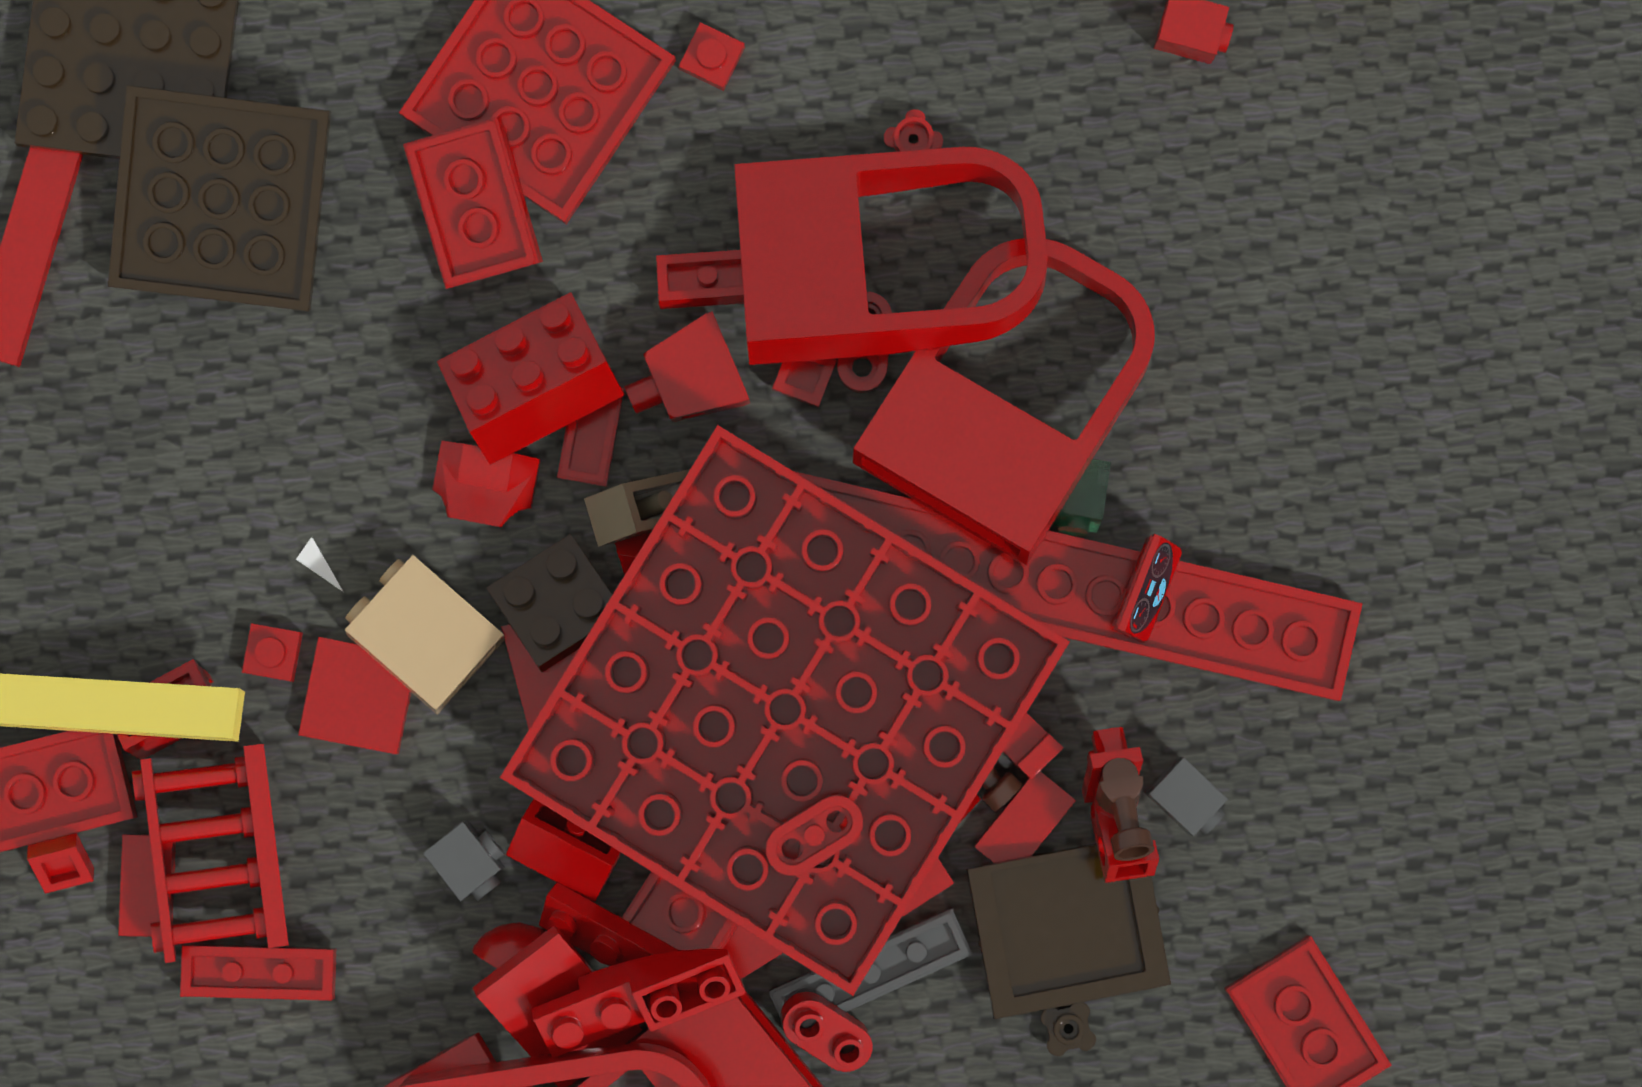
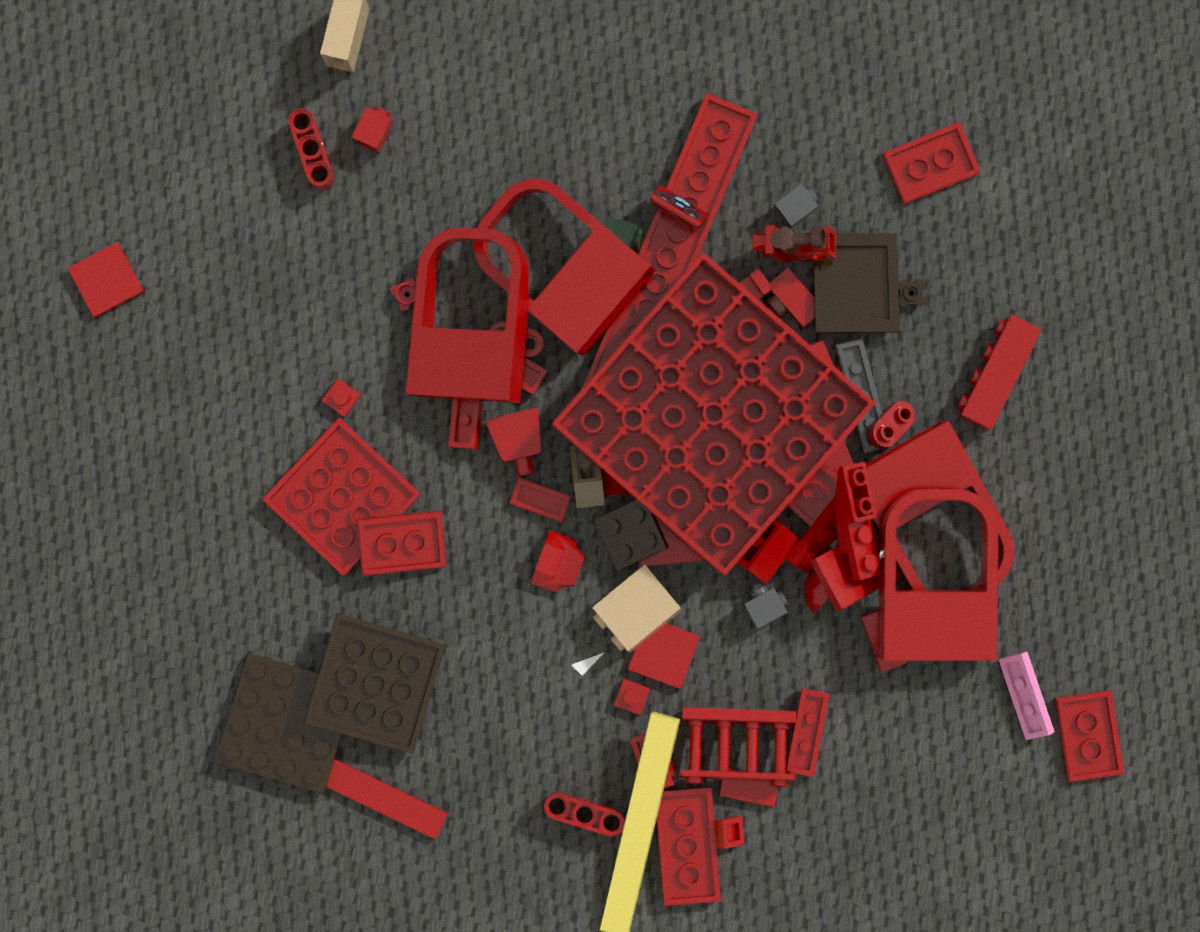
camera: 80 degrees left, 0 degrees up
(41, 579) = (594, 824): none -> red beam
(530, 378) = (505, 525): red brick -> none
(815, 836) = (784, 408): red plate -> none

